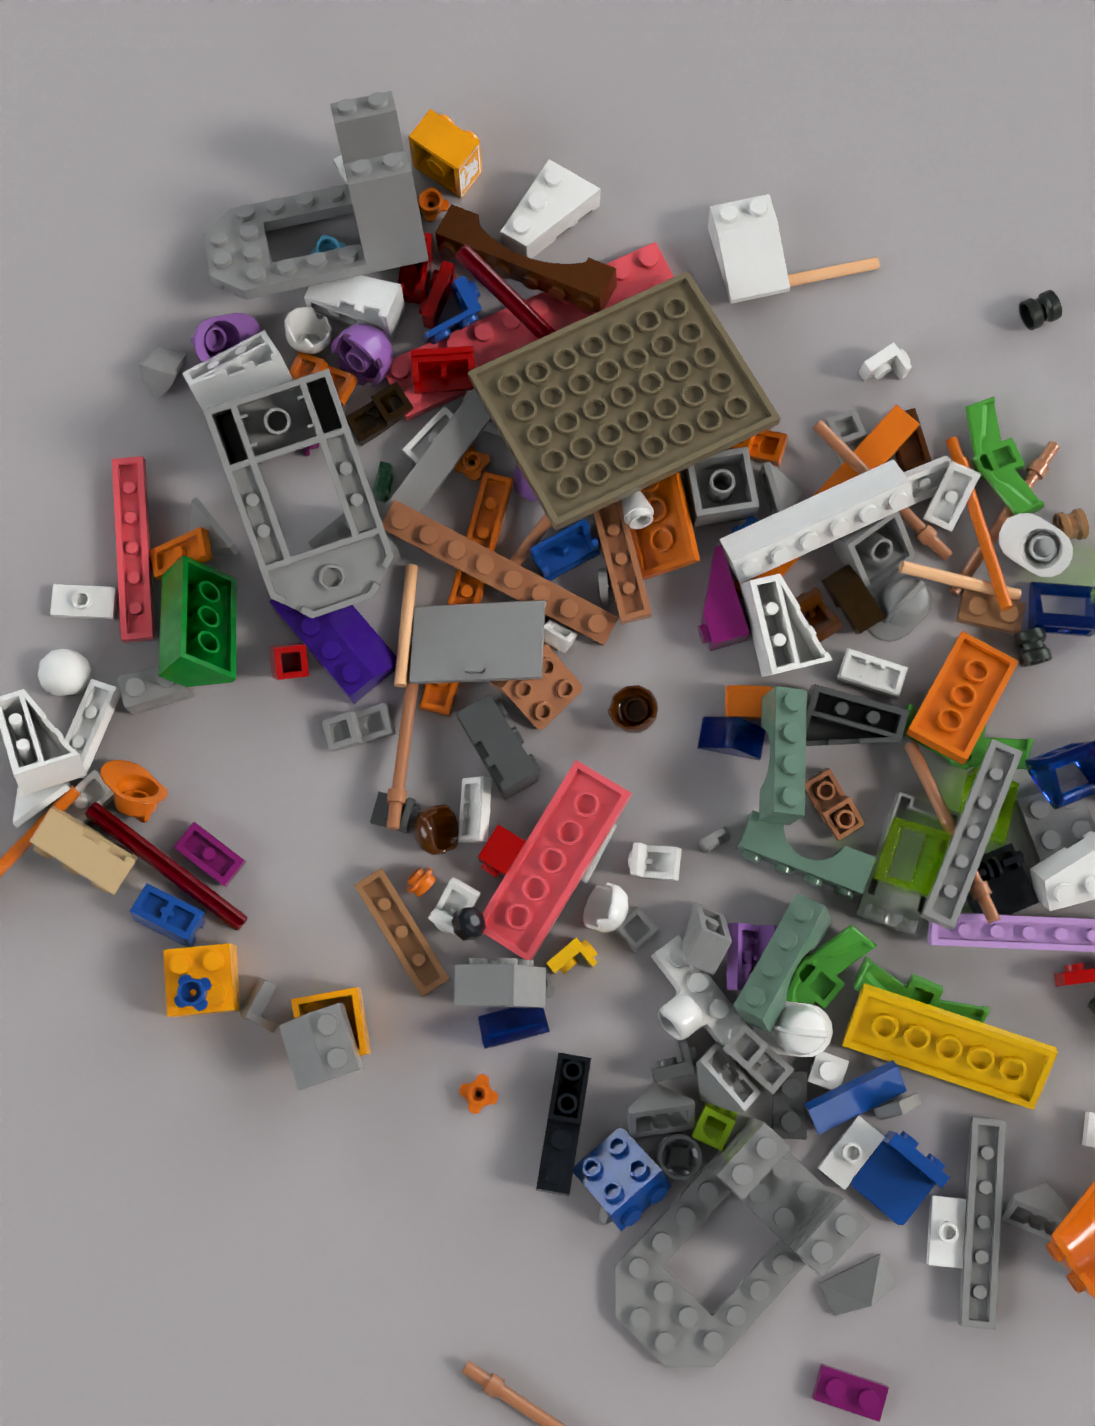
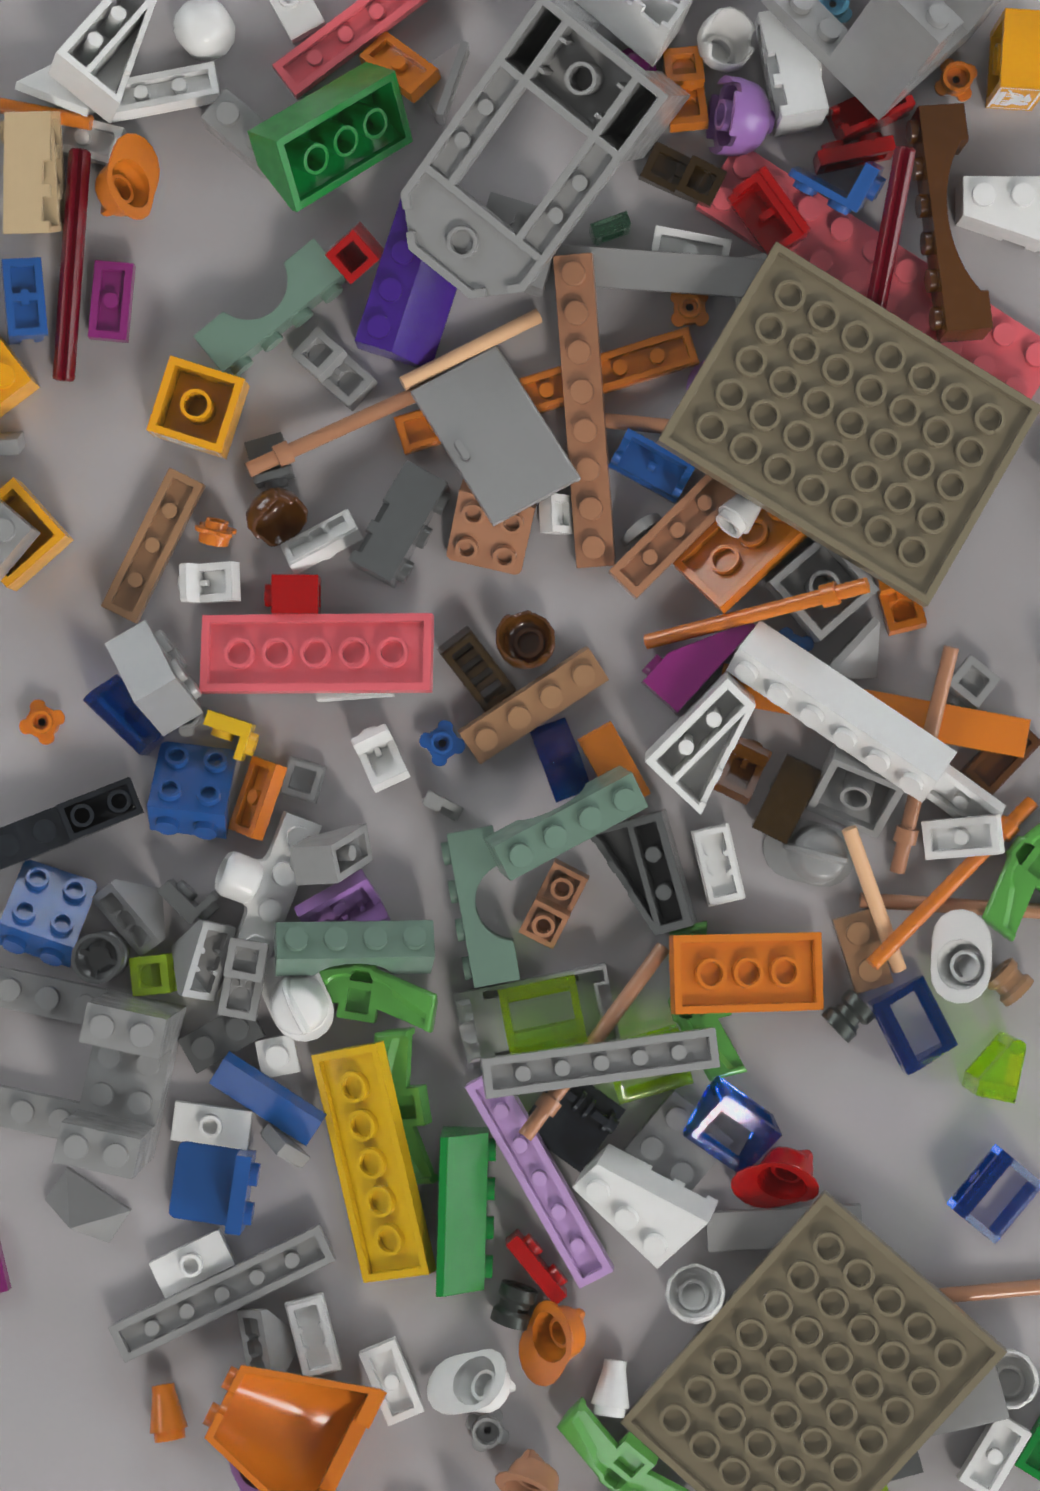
camera: 60 degrees right, 10 degrees up
(294, 784) = (235, 341): none -> sand green arch
(325, 837) = (198, 407): none -> light orange brick
(468, 923) = (199, 607): black tile -> none
(596, 1013) = (191, 790): none -> blue bracket
(605, 761) = (455, 643): none -> dark brown slope
(606, 908) = (302, 736): white hair -> none
(630, 968) = (257, 798): none -> orange plate
(676, 805) = (431, 742): none -> blue plate
(681, 733) = (533, 704): none -> medium nougat plate
(732, 479) = (826, 595): none -> orange bar
(1020, 1002) = (463, 1210): none -> green slope
(1052, 1172) = (313, 1335): none -> white plate
(1052, 1322) = (167, 1415): none -> orange cone

